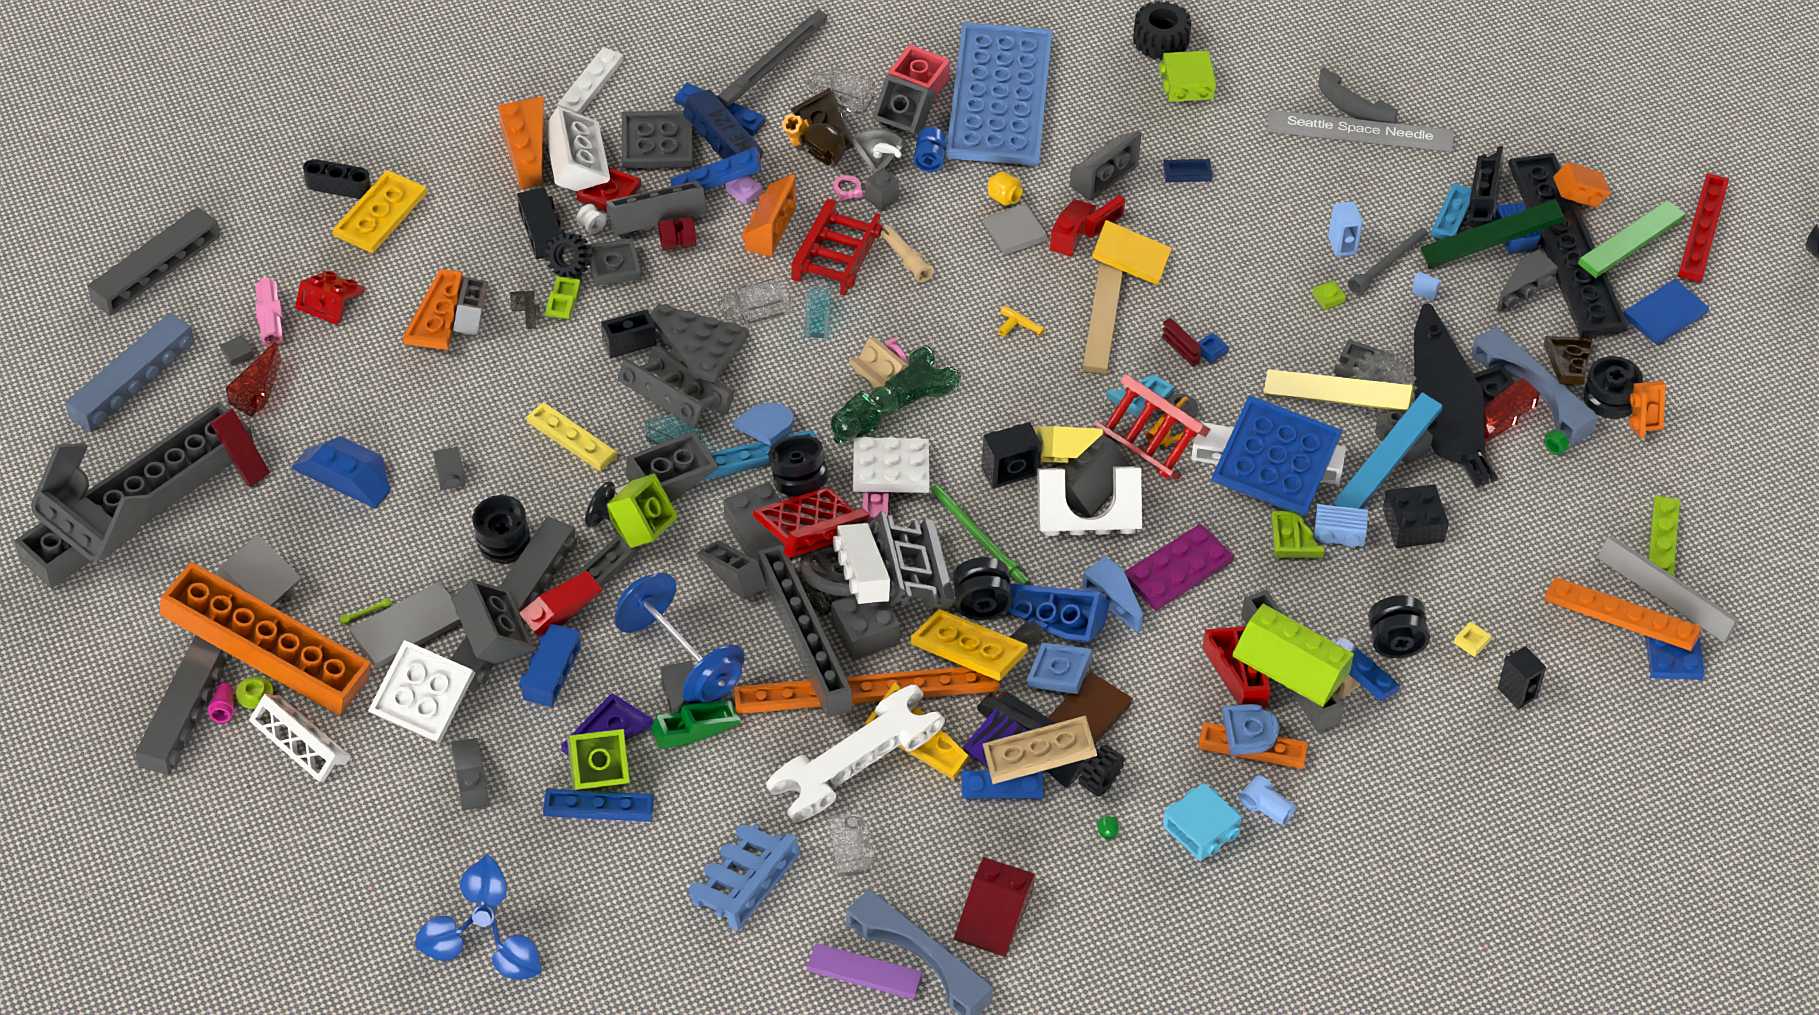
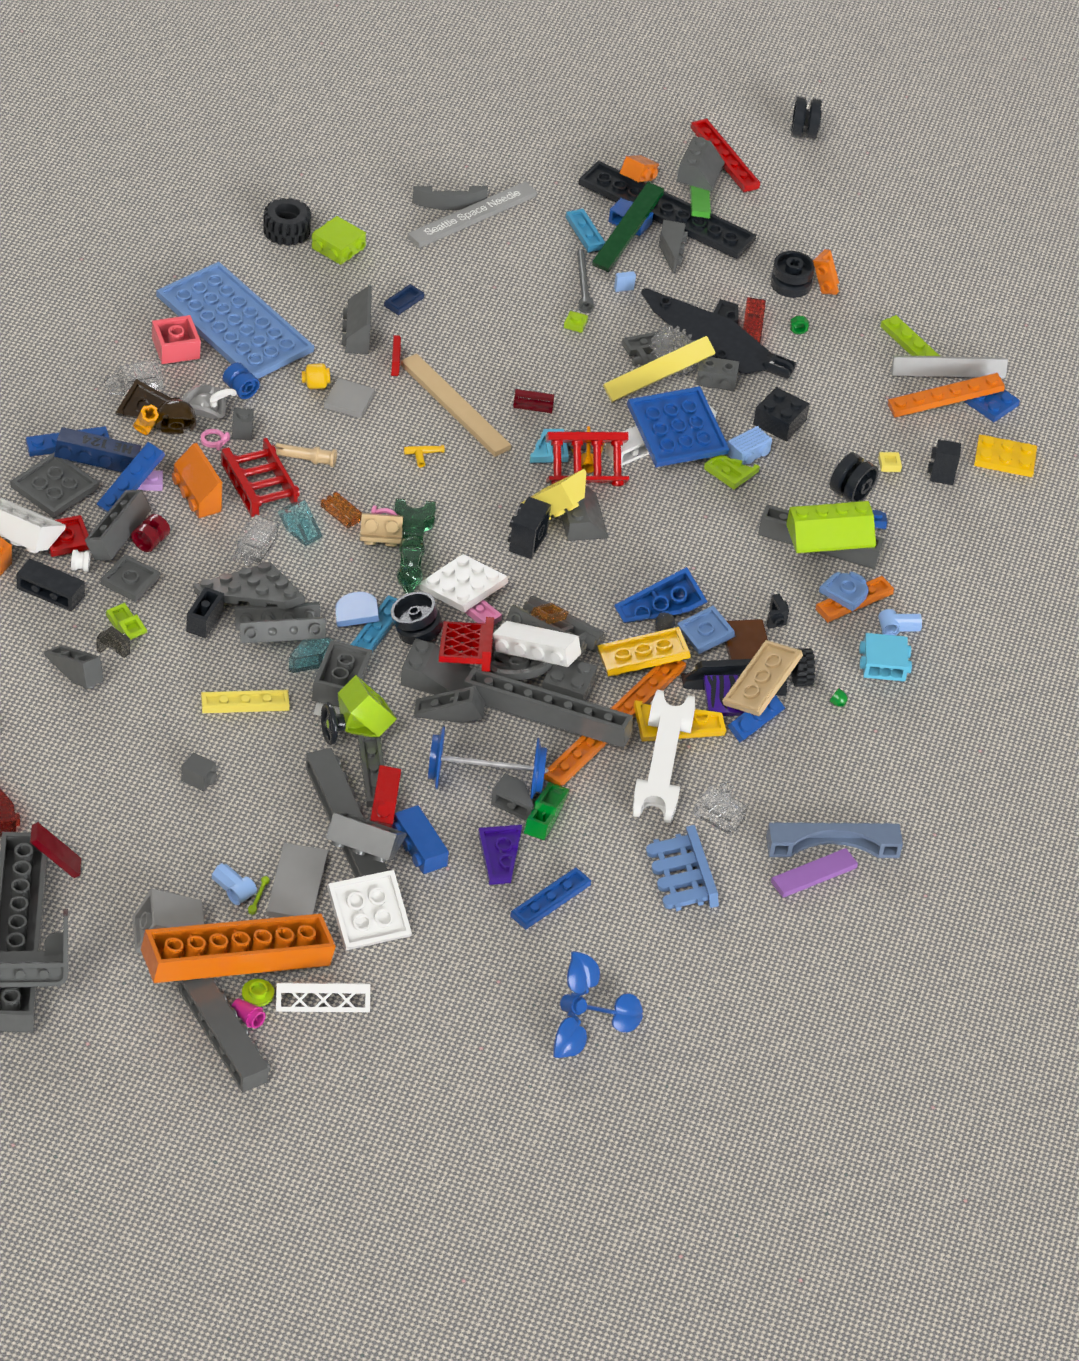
camera: 50 degrees left, 5 degrees down
(346, 469) = (129, 820): blue wedge -> none
(352, 590) = (237, 888): none -> light blue piece
(436, 315) = (58, 684): orange wing -> none
(470, 774) = (456, 935): dark grey slope -> none
(501, 528) = (288, 780): black wheel -> none
(556, 258) = (112, 599): black tyre -> none
(598, 759) = (529, 867): lime brick -> none
(772, 58) = (65, 384): dark grey piece -> none
(876, 311) = (344, 507): none -> clear orange tile
(903, 105) = (195, 361): dark grey brick -> none
(911, 543) = (546, 612): none -> clear orange tile
(982, 588) = (614, 613): black wheel -> none
(984, 540) = (603, 595): bright green bar -> none
(995, 906) = (838, 783): dark red slope -> none
(1070, 227) = (384, 375): red slope -> none
(1113, 584) = (670, 561): medium blue slope -> none
(1122, 514) = (629, 520): white arch -> none
(1131, 252) = (439, 367): yellow tile -> none
(1153, 708) = (778, 612): none -> black bracket
(1178, 566) = (690, 531): magenta plate -> none
(1212, 348) = (552, 390): blue tile -> none
(1243, 681) = (809, 566): red wedge -> none
(1345, 228) = (545, 273): light blue brick -> none
(1389, 453) = (730, 386): dark azure tile -> none
(1485, 188) = (590, 203): black wedge -> none
(1568, 358) = (750, 273): dark brown wing -> none
(1569, 412) = (780, 302): sand blue arch -> none
(1614, 719) = (1005, 455): none -> yellow plate
(1649, 218) = (700, 164): none -> dark grey slope
(1666, 311) = (762, 215): blue tile -> none

